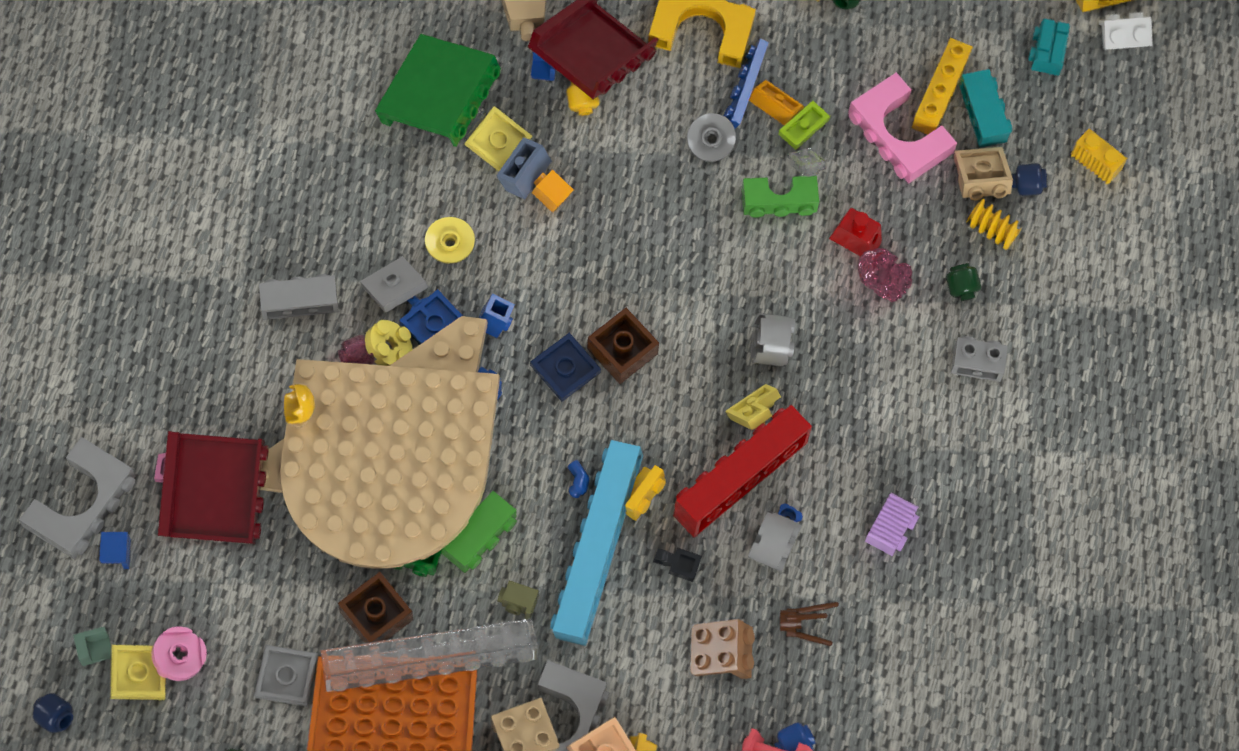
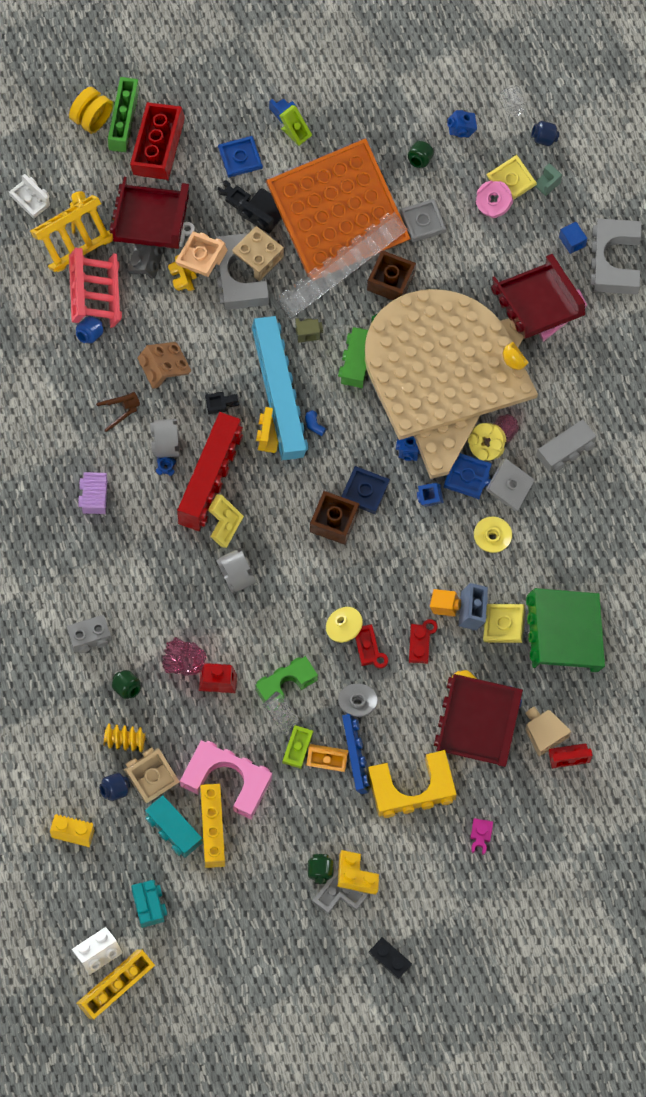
camera: 155 degrees right, 0 degrees up
(603, 170) = (420, 642): none -> red hinge
(666, 190) = (368, 648): none -> red hinge
(668, 227) = (348, 628): none -> light yellow dish

